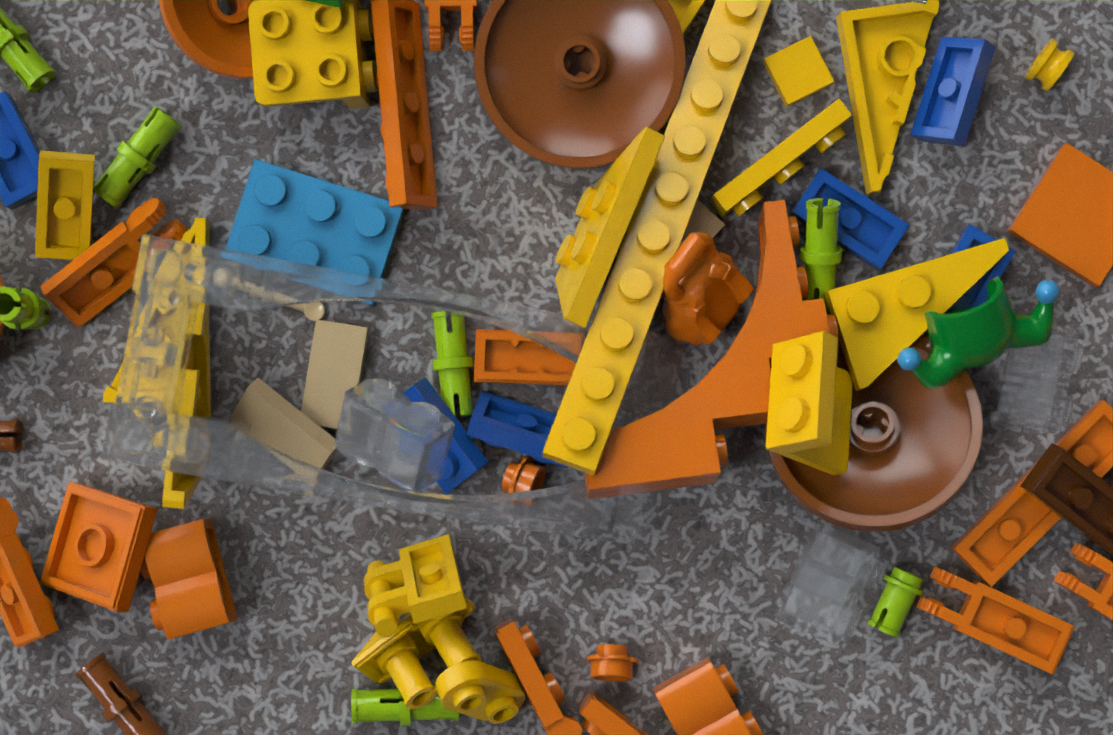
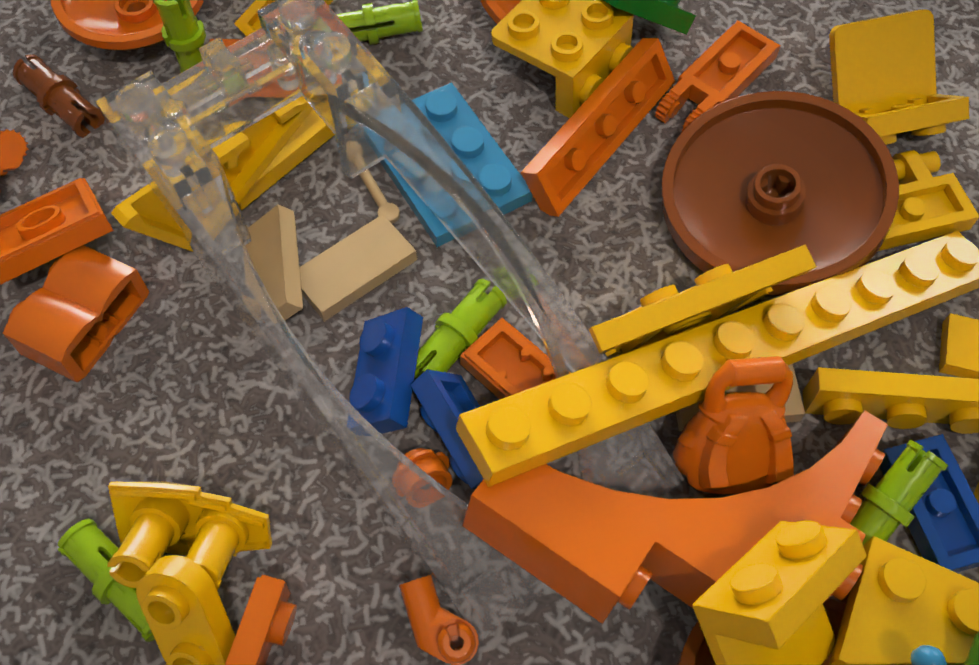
camera: 40 degrees right, 25 degrees down
(394, 434) = (351, 326): clear brick -> none
(420, 583) = (236, 471): yellow plate -> none
(617, 562) = (436, 628): none -> orange arm

